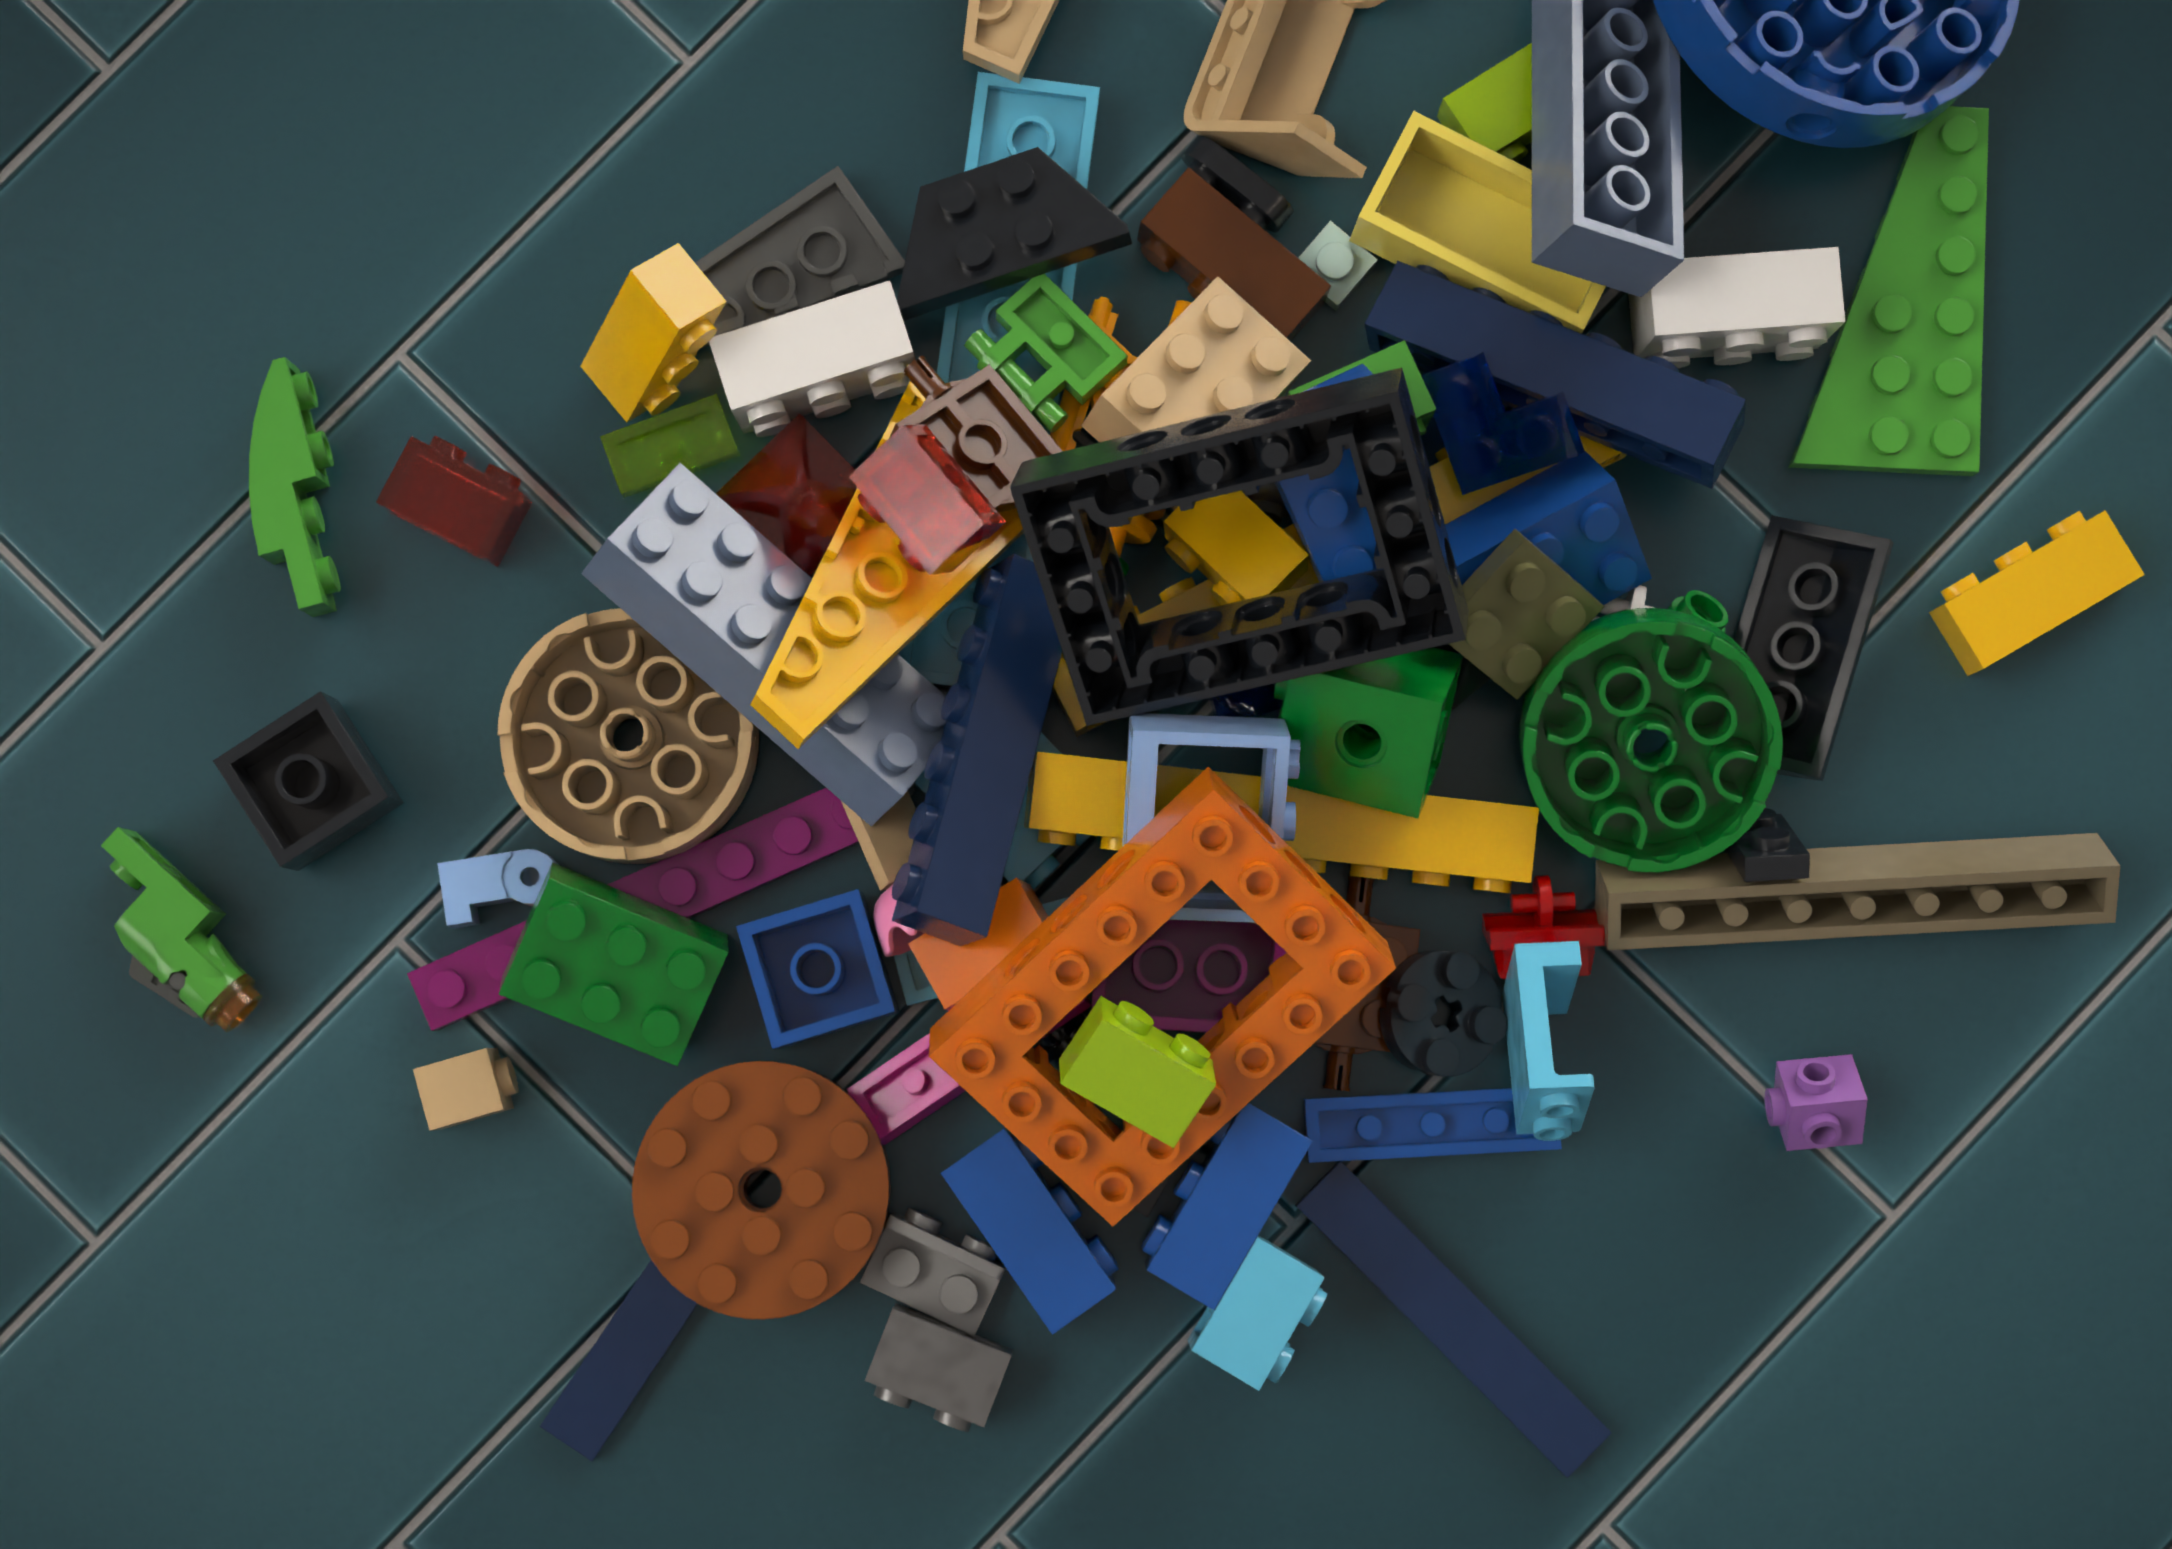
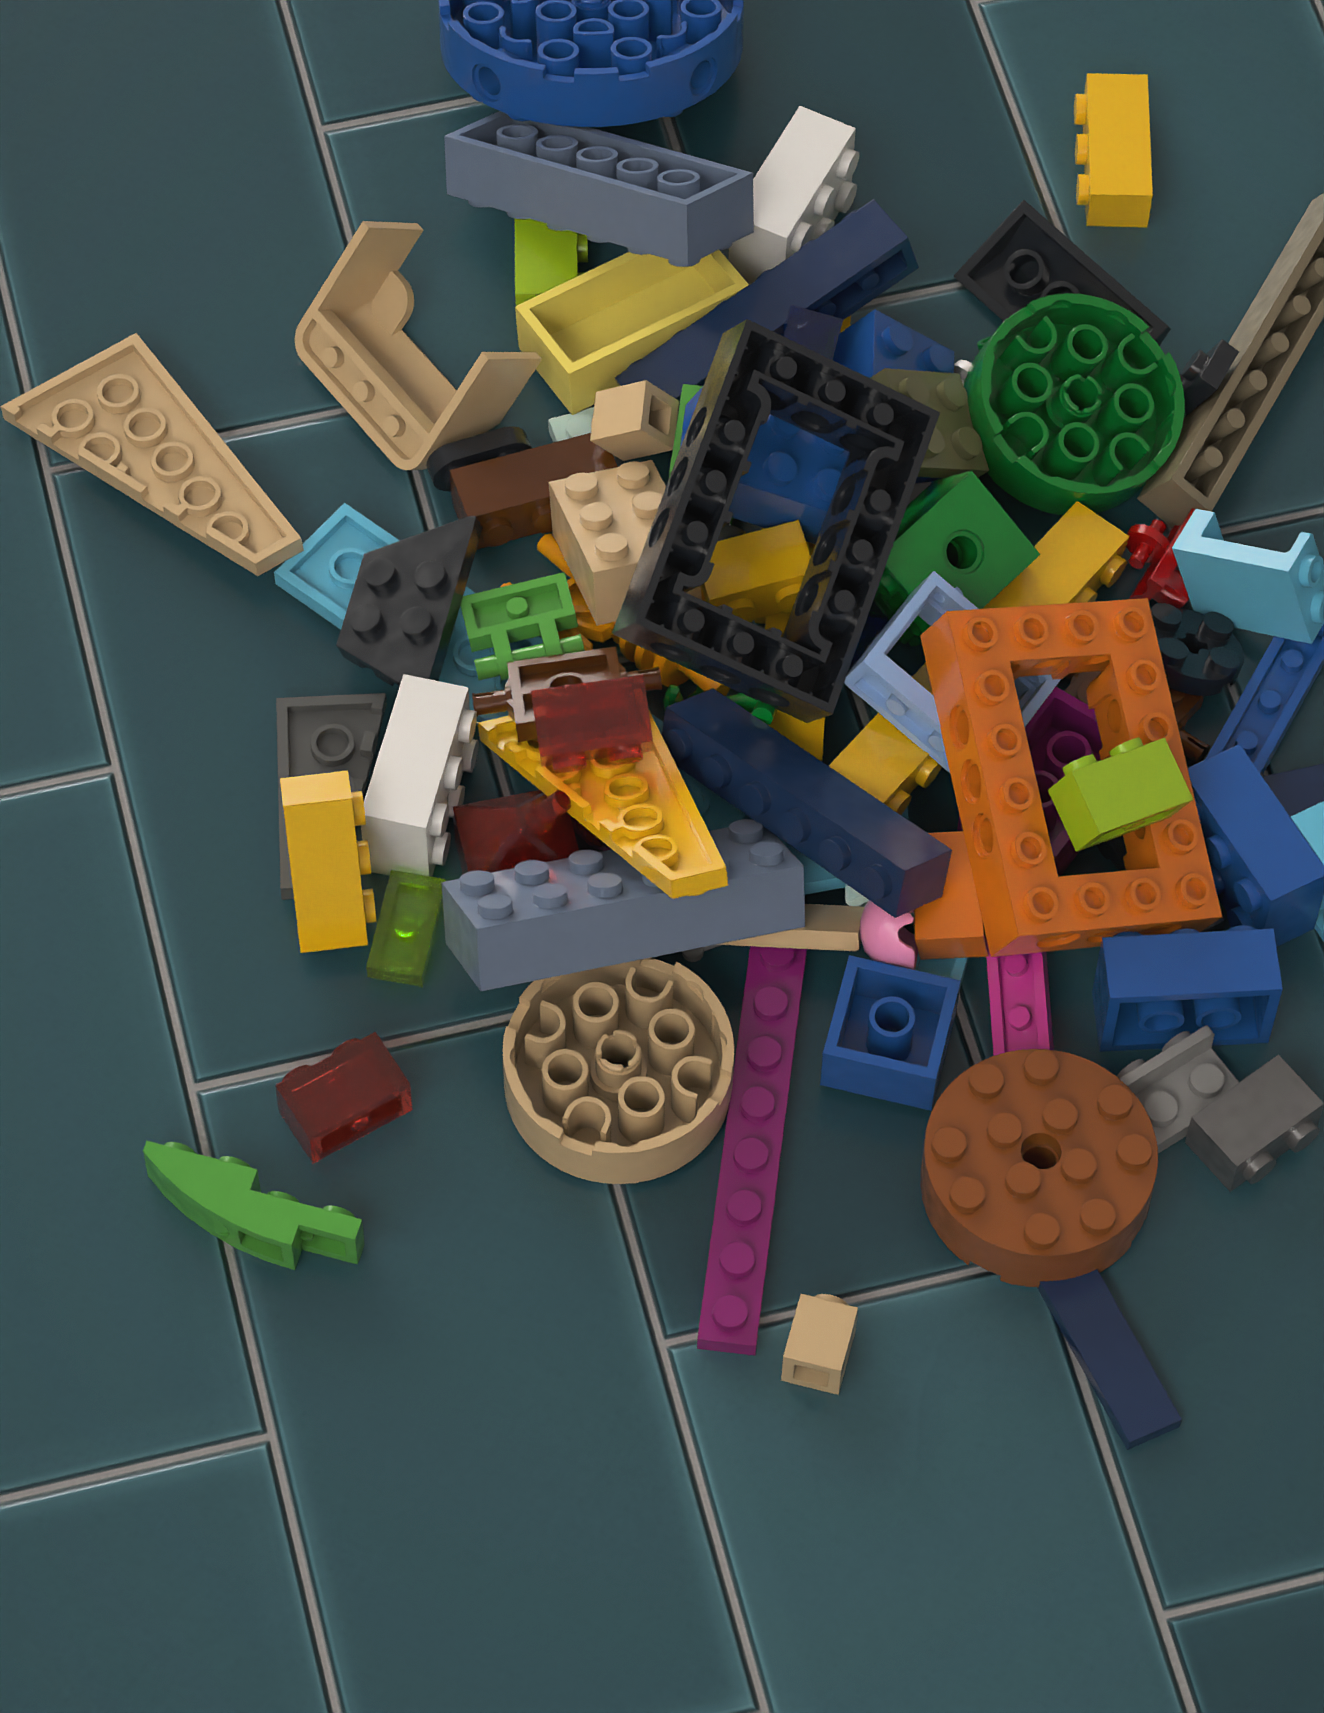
camera: 60 degrees left, 25 degrees down
(170, 941) = (548, 1497): bright green plate -> none
(308, 782) = (497, 1313): black brick -> none
(490, 881) = (669, 1222): light blue leg -> none
(614, 964) = (793, 1163): green brick -> none
(1337, 317) = (634, 420): none -> tan brick
(1911, 343) = (910, 148): bright green wing -> none

